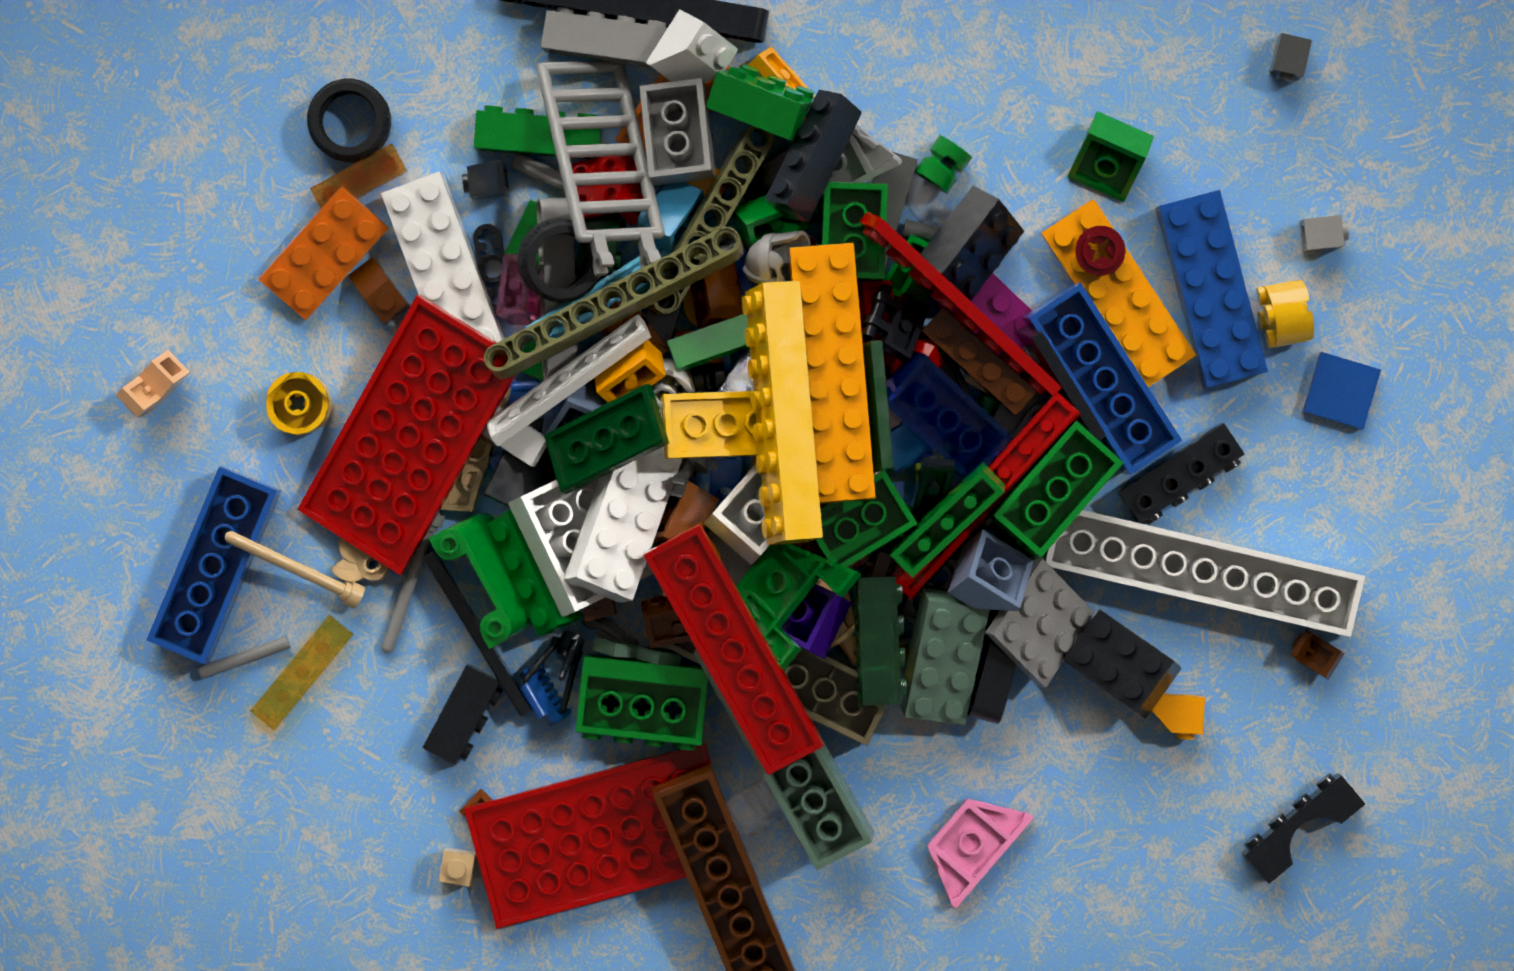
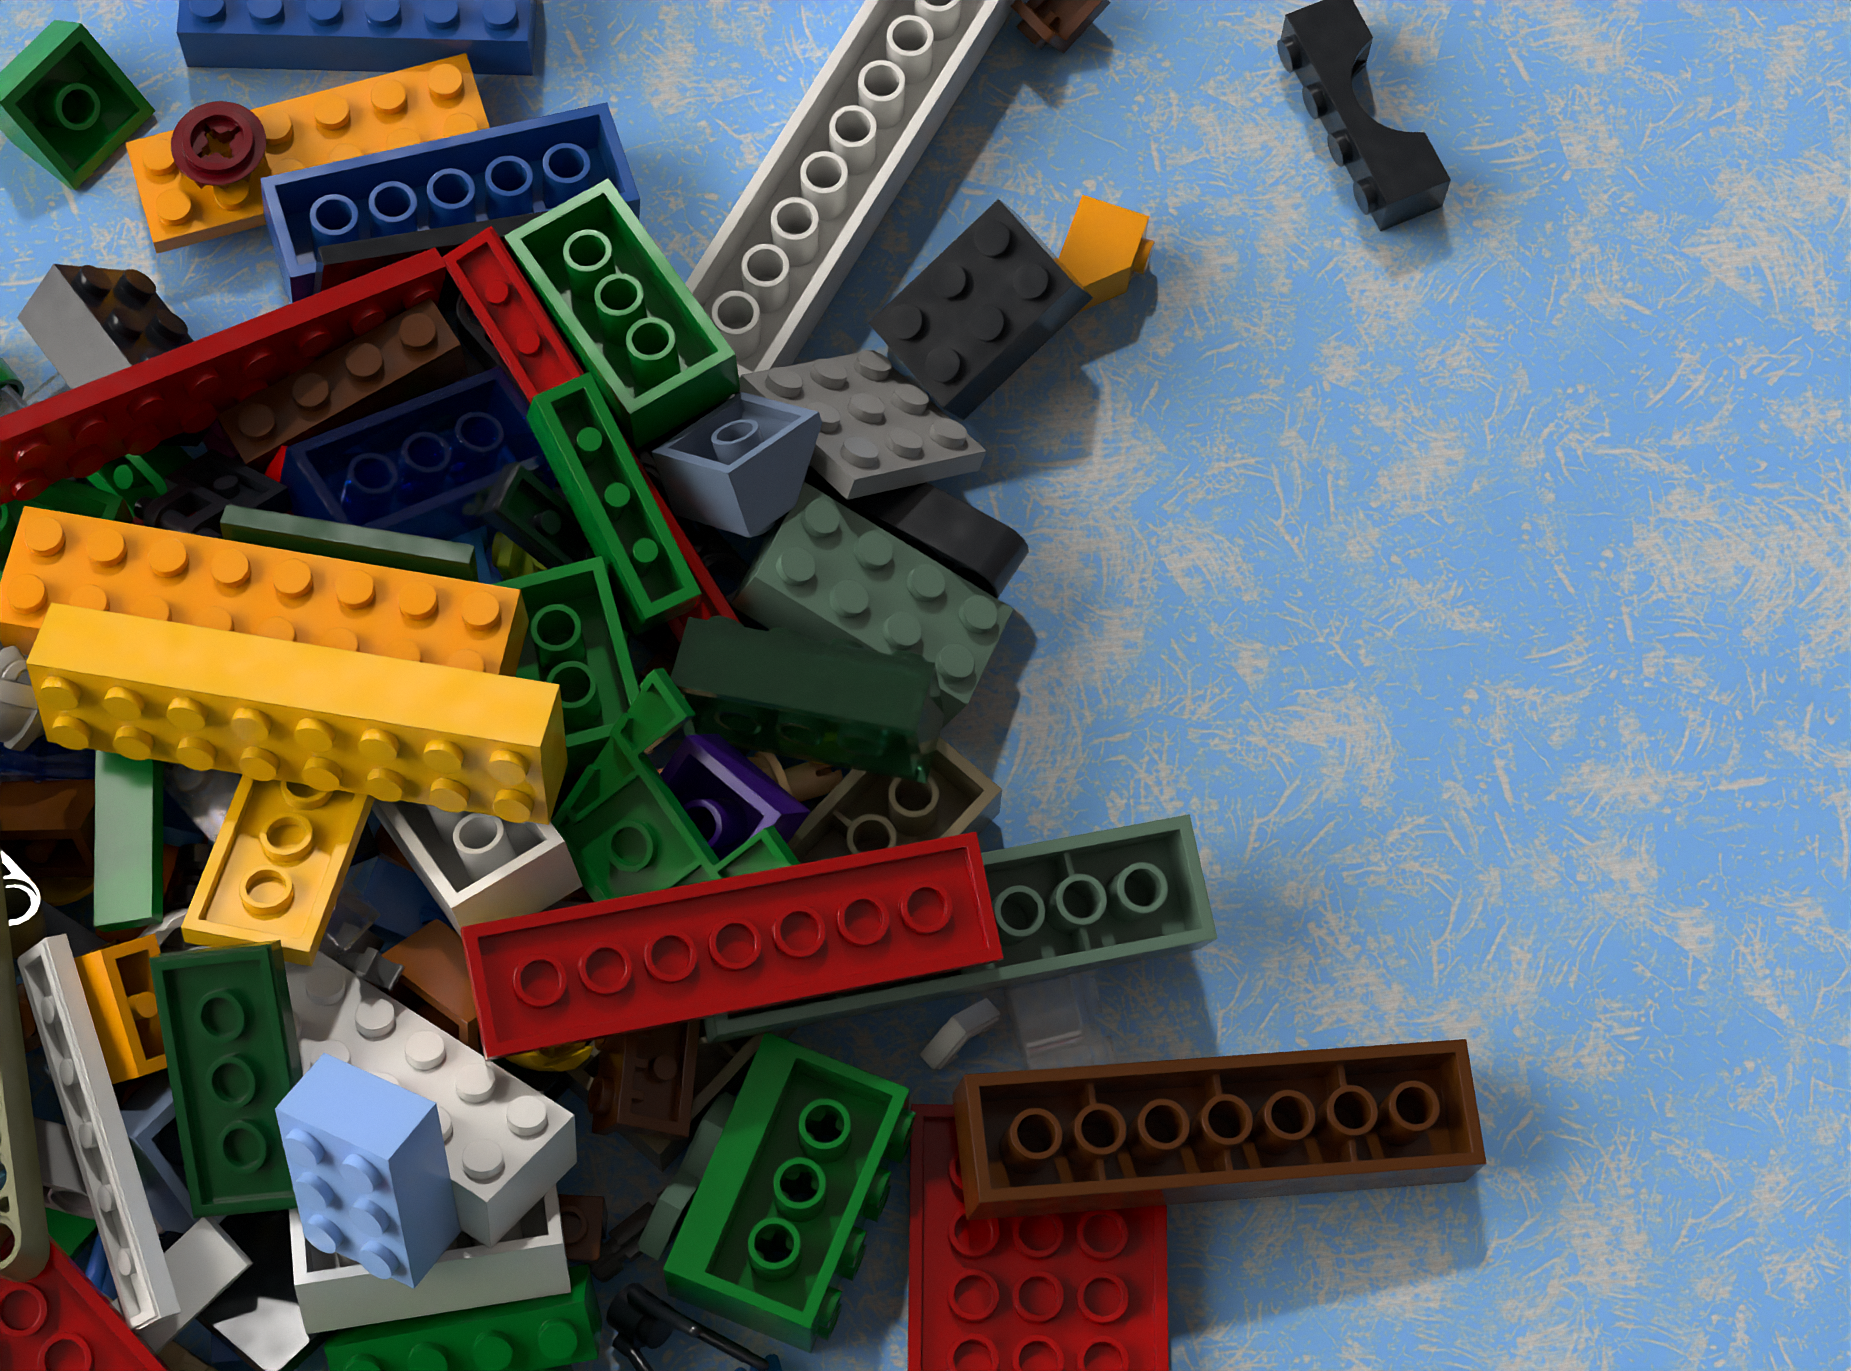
camera: 80 degrees left, 20 degrees down
(574, 519) = (368, 1170): none -> light blue brick
(742, 753) = (956, 1032): none -> white tile
(973, 844) = (1245, 672): bright pink wing -> none
(1181, 473) = (668, 135): black brick -> none

